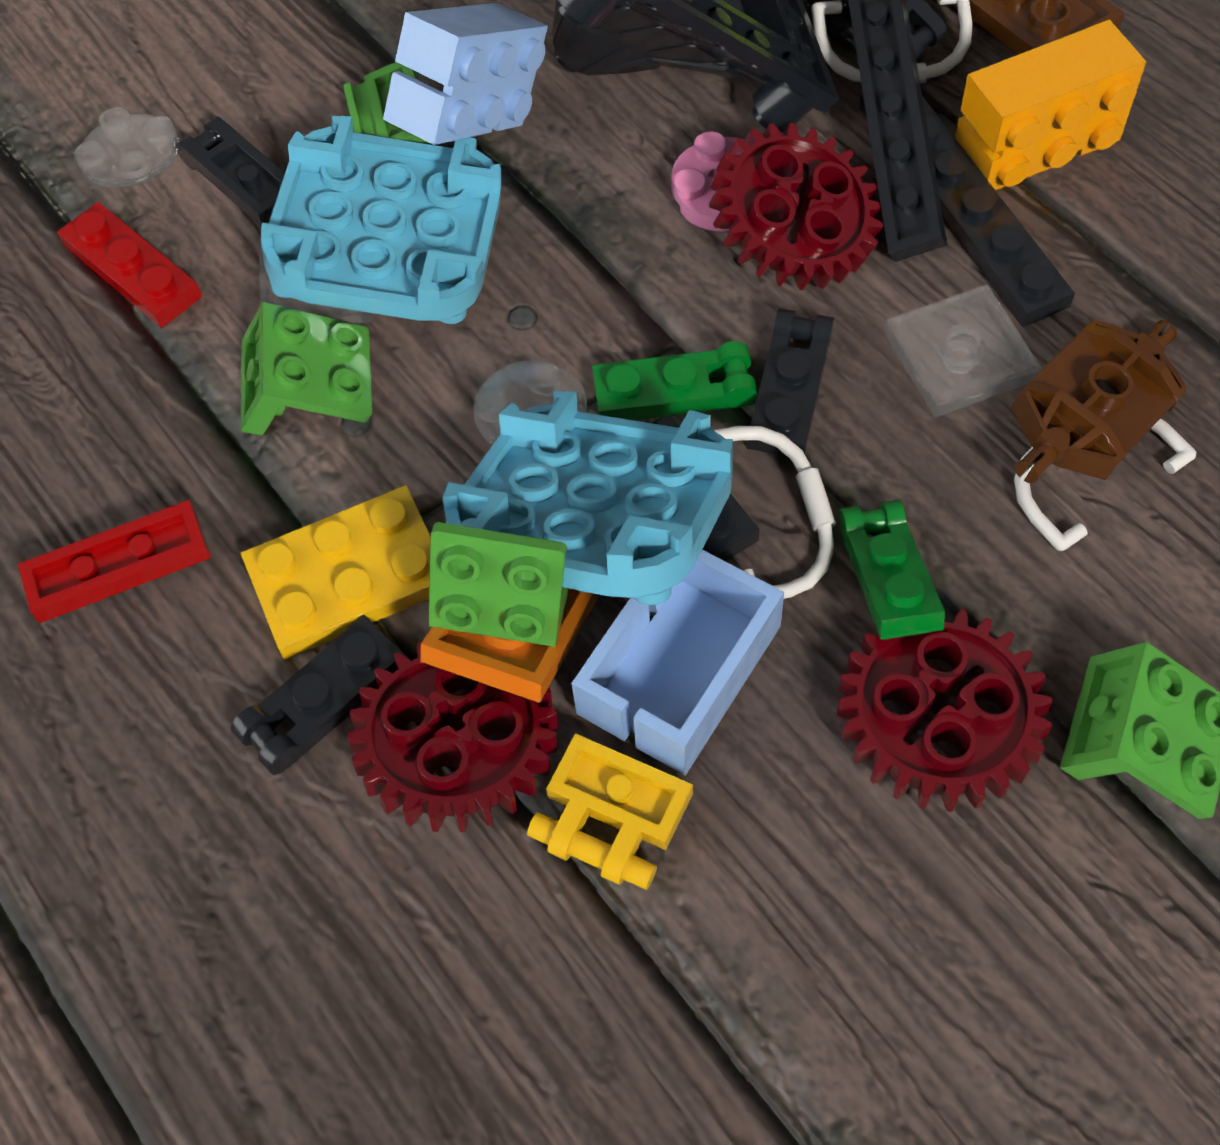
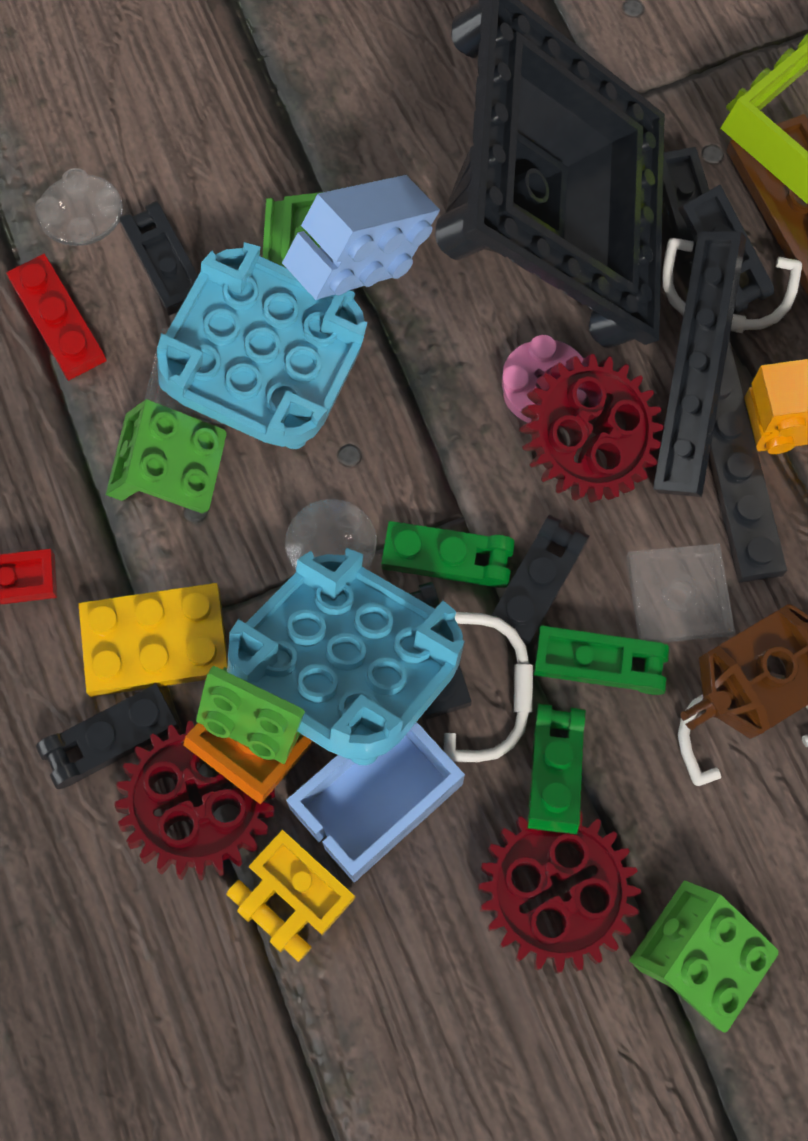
camera: 10 degrees right, 10 degrees up
(897, 442) = (600, 659): none -> green plate

